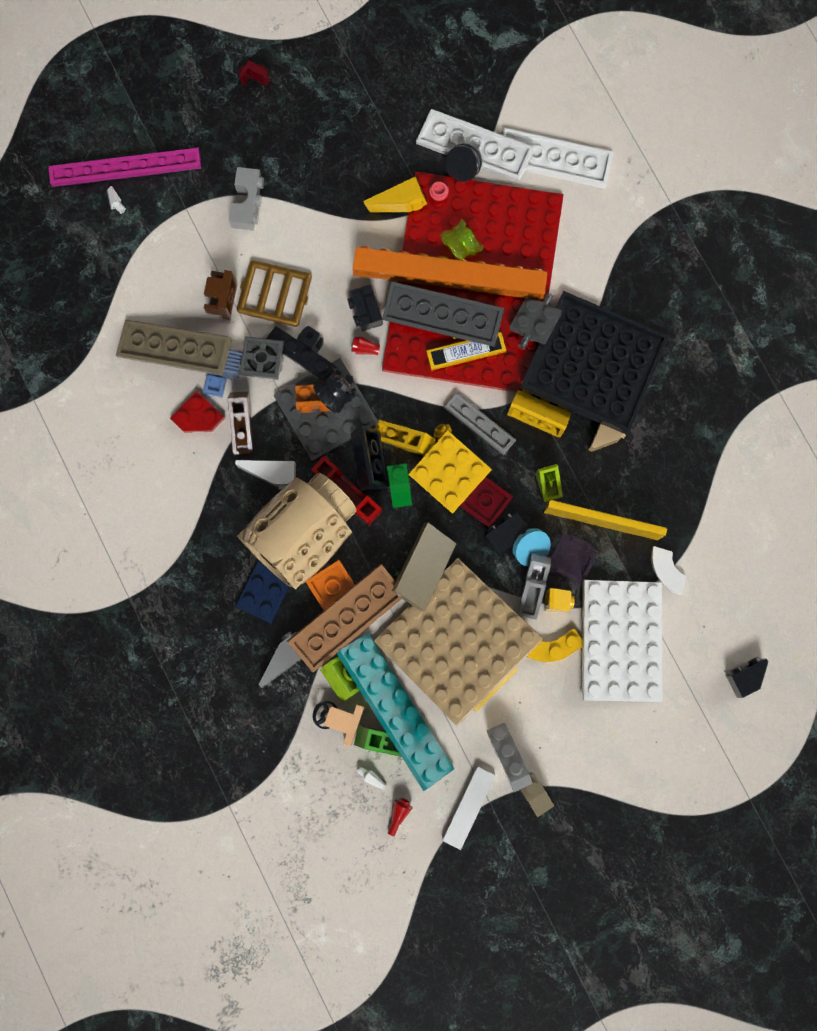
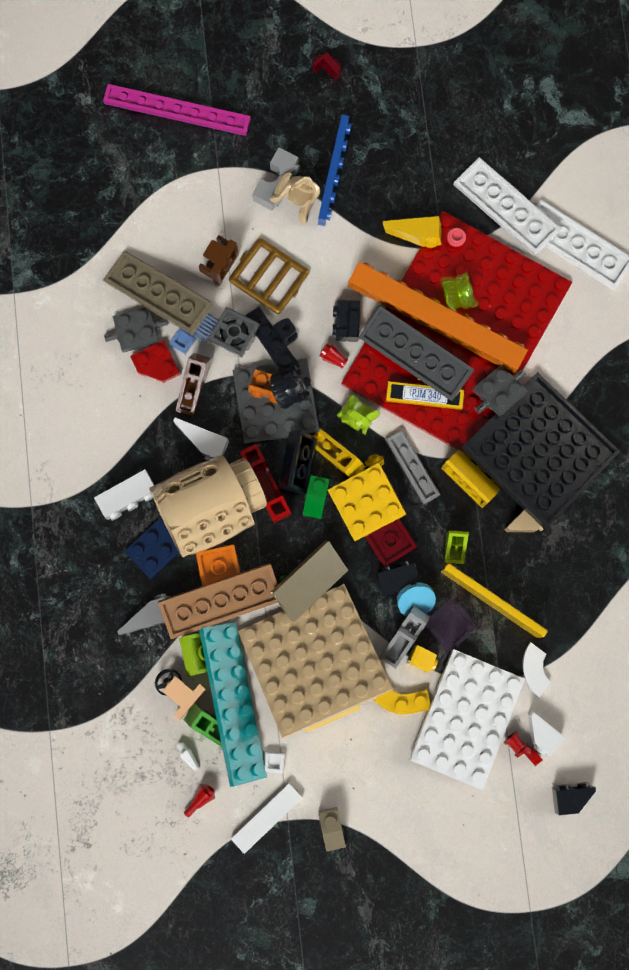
camera: 20 degrees right, 0 degrees up
(115, 201) = (156, 138): white bar -> none
(165, 391) = (135, 329): none -> dark grey plate
(216, 552) = (125, 495): none -> white brick
(273, 201) = (299, 191): none -> tan hair
(300, 178) = (333, 177): none -> blue plate
(409, 392) = (357, 414): none -> lime hair
(455, 752) = (274, 762): none -> white tile
(463, 162) = (489, 218): black head -> none
(509, 757) = (320, 786): light grey arch -> none
(681, 649) = (521, 748): none -> red connector
(699, 628) = (543, 735): none -> white slope

